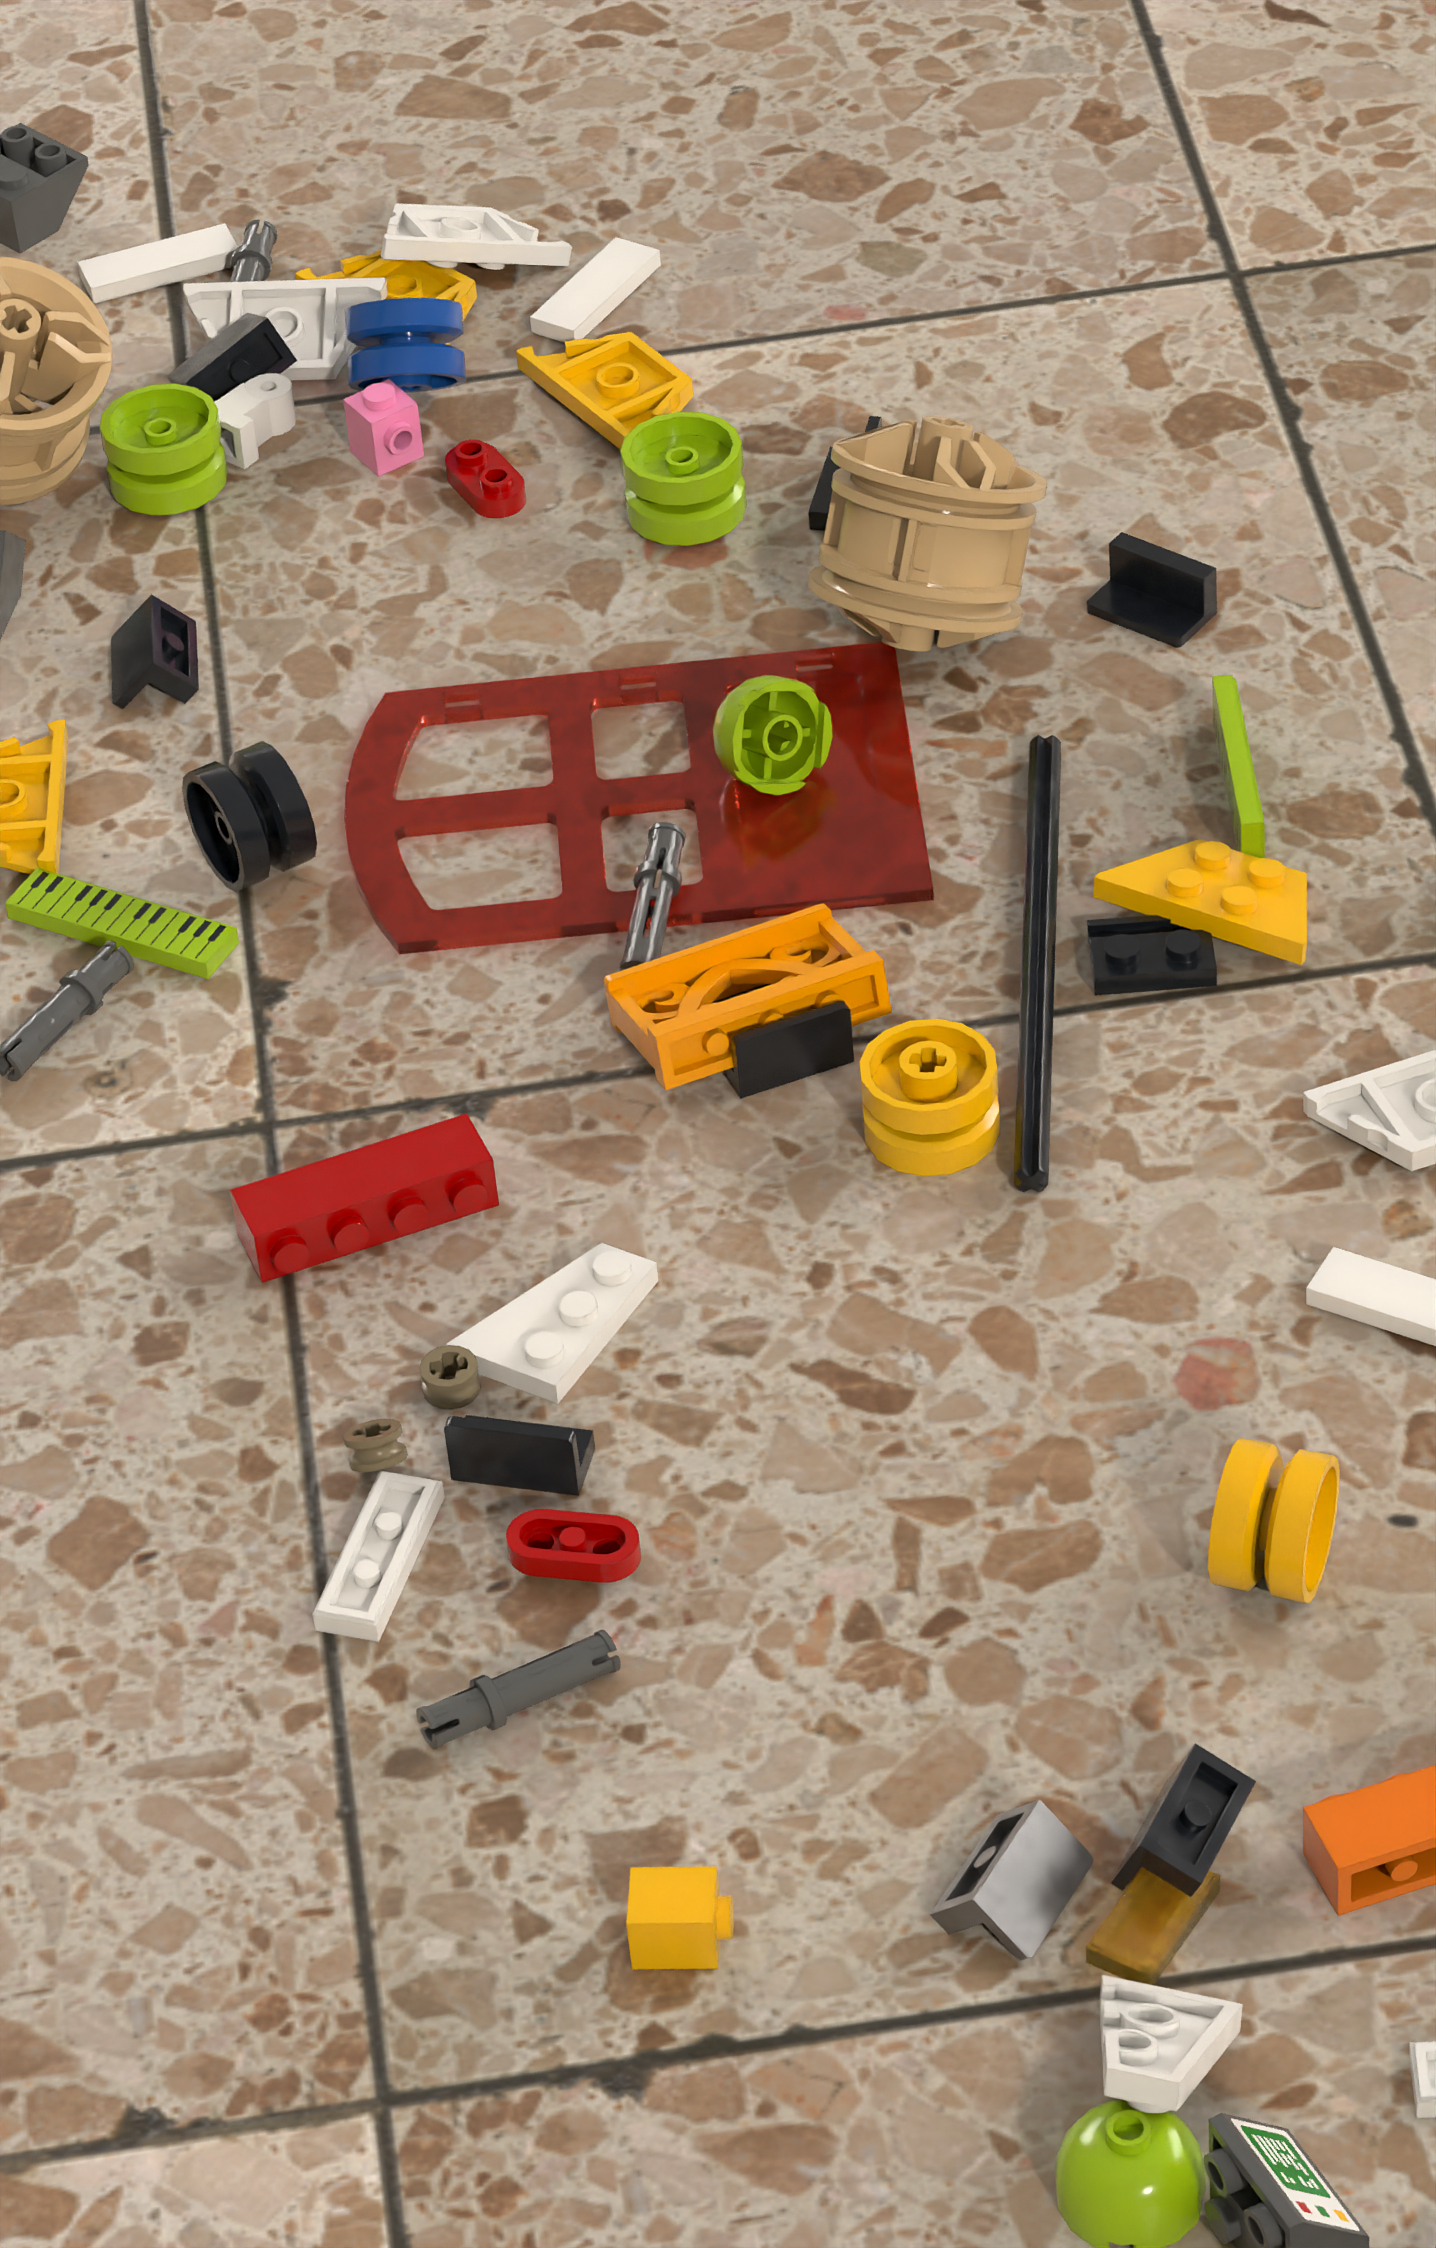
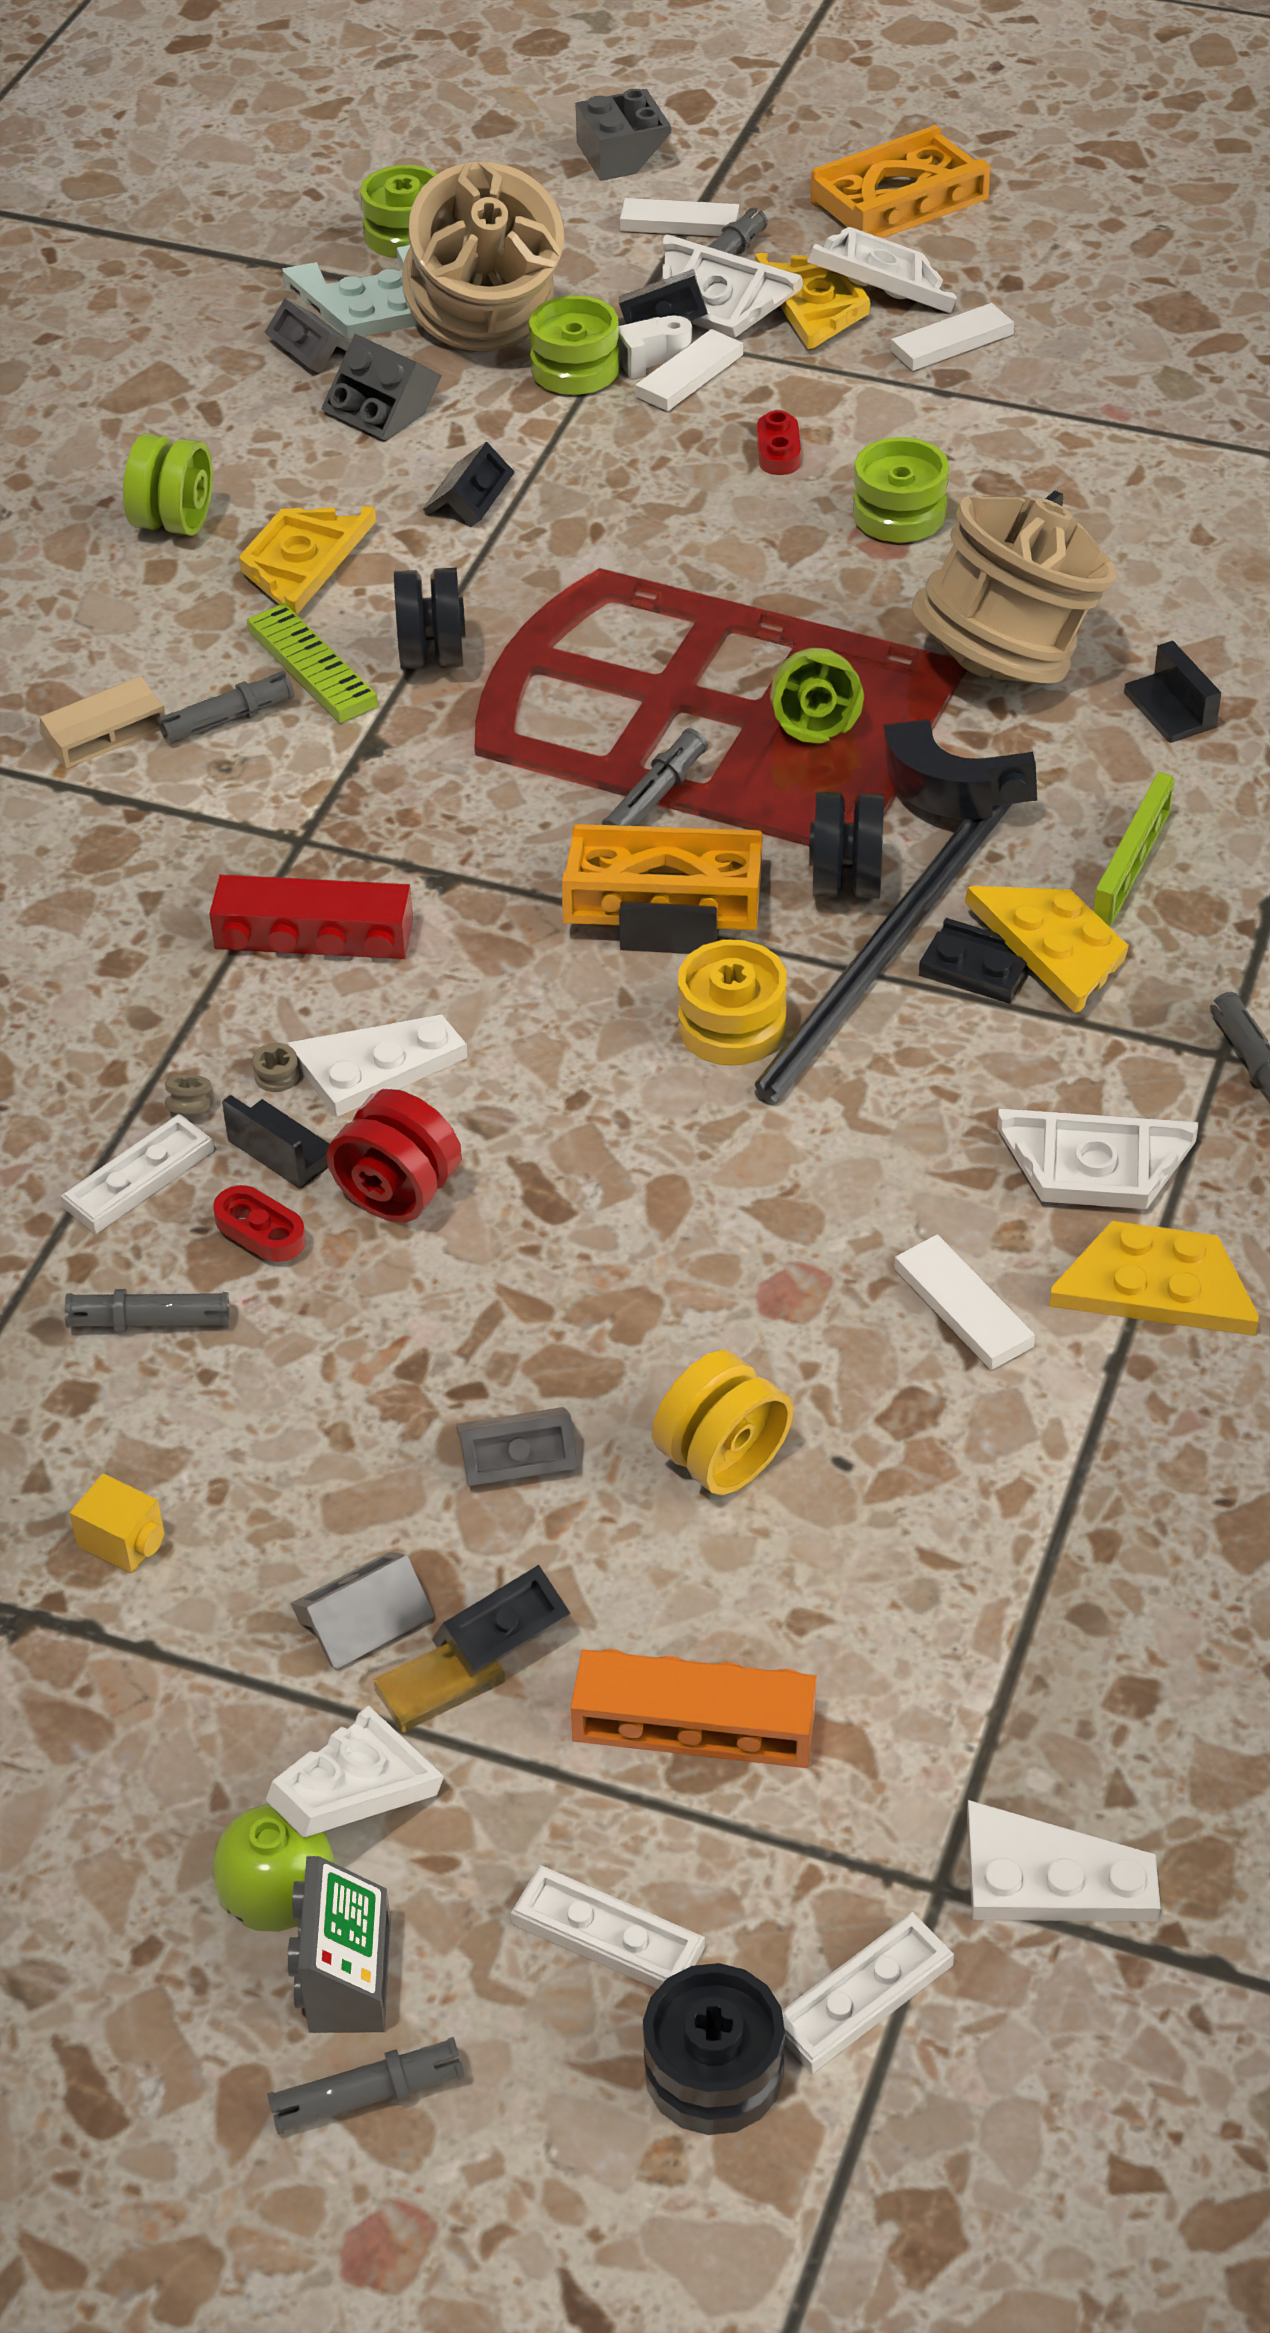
camera: 25 degrees right, 5 degrees up
(310, 435) = (689, 370): none -> white tile
(350, 167) = (850, 183): none -> light orange fence
(383, 427) = (731, 381): bright pink brick -> none
(406, 344) = (776, 327): blue wheel -> none
(610, 382) = (912, 403): yellow wing -> none
(690, 1404) = (394, 1155): none -> red wheel
(937, 880) = (847, 845): none -> black wheel
(986, 774) = (952, 783): none -> black arch
(1053, 1647) = (517, 1446): none -> flat silver panel

